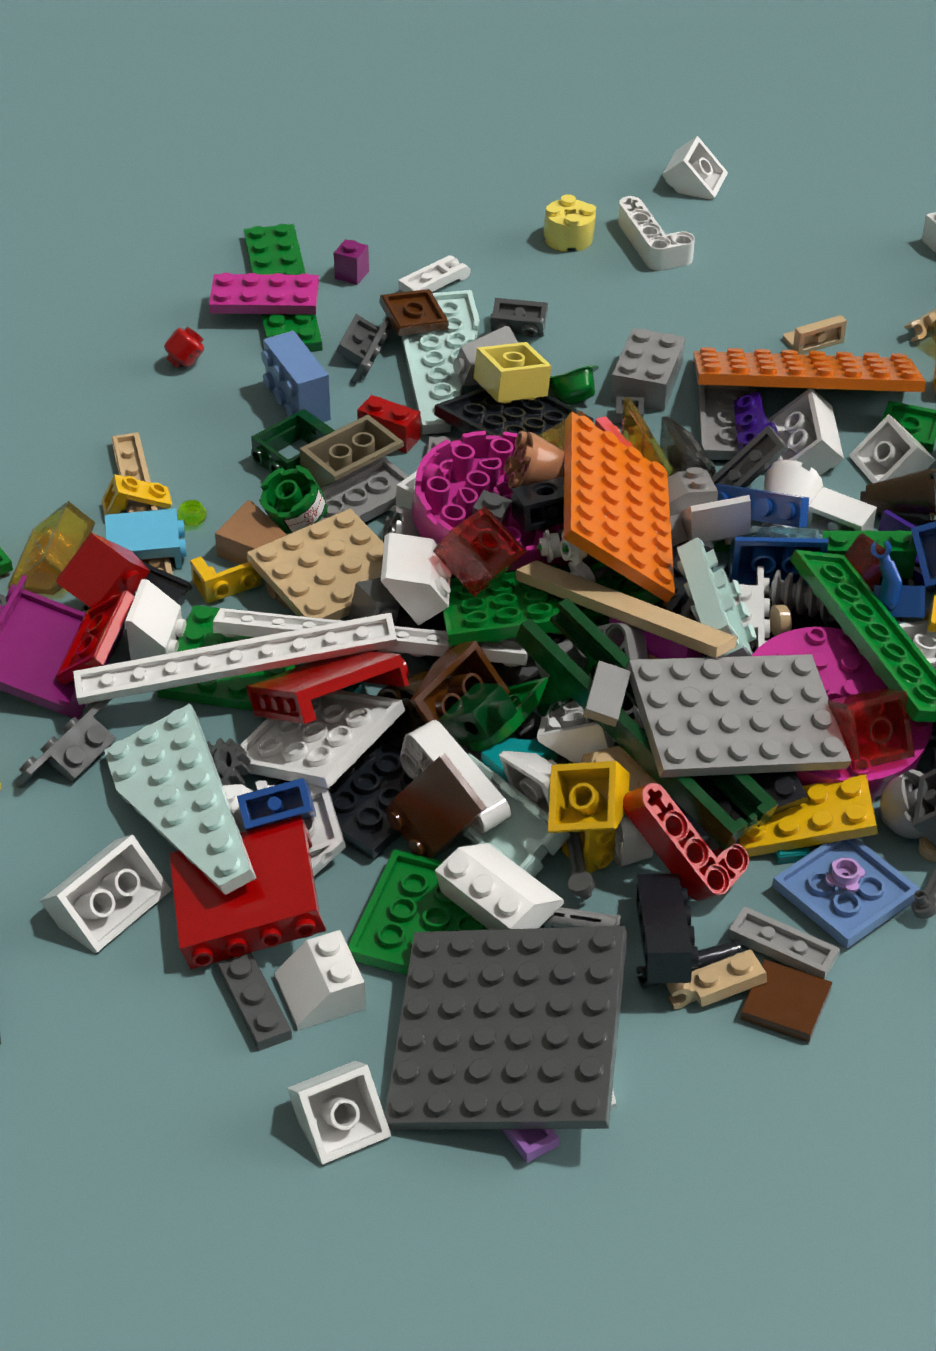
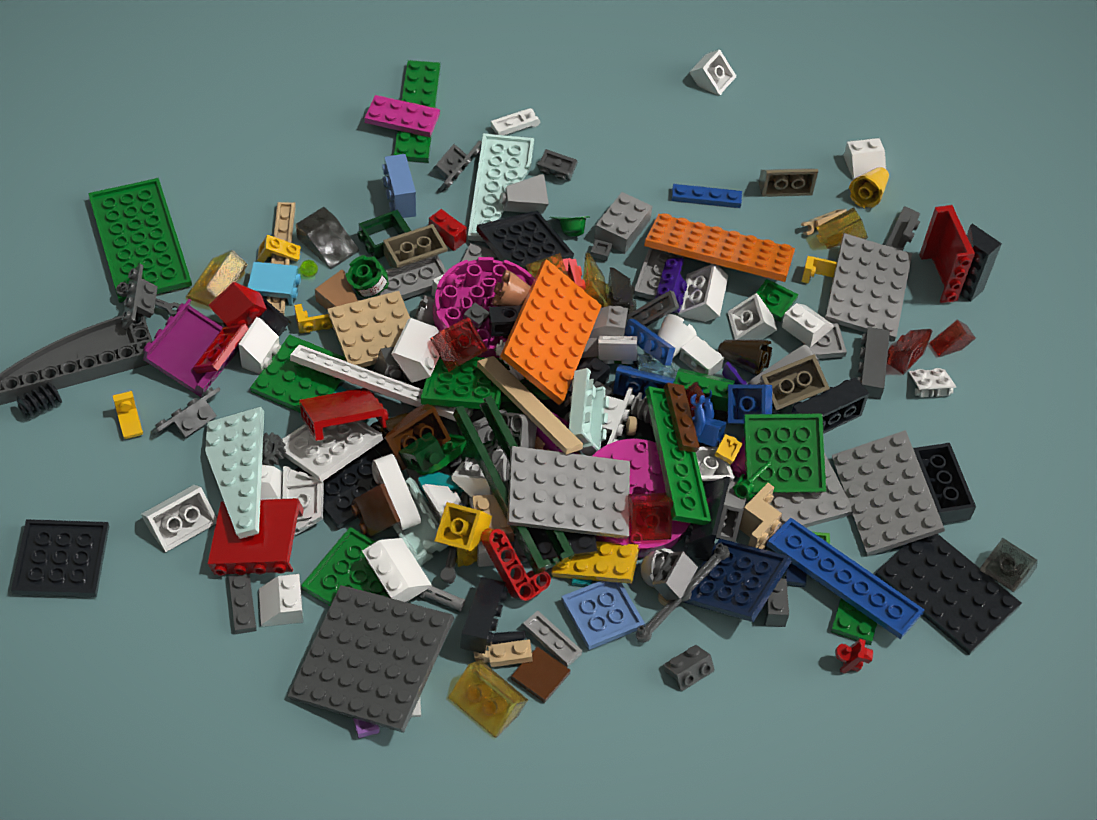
camera: 10 degrees right, 10 degrees up
(184, 347) = (340, 146): red head -> none
(204, 467) = (326, 237): none -> clear smoke slope
(234, 658) = (295, 383): white plate -> none
(276, 804) = (286, 488): blue brick -> none
(339, 1111) = (265, 683): white slope -> none
(351, 261) = (465, 101): magenta brick -> none
(413, 312) = (489, 150): reddish brown tile -> none
(512, 372) = (532, 211): light yellow brick -> none
(569, 224) = (614, 99): light yellow brick -> none
(606, 693) = (492, 464): light grey tile -> none
(655, 247) = (665, 130): white beam -> none
(717, 1053) = (487, 698): none -> clear yellow slope
(752, 318) = (706, 196): none -> blue plate
(817, 335) = (741, 218): tan panel -> none
(845, 874) = (602, 600): lavender plate -> none
(861, 583) = (681, 417): none -> reddish brown plate
(863, 277) = (787, 182): none -> dark tan slope

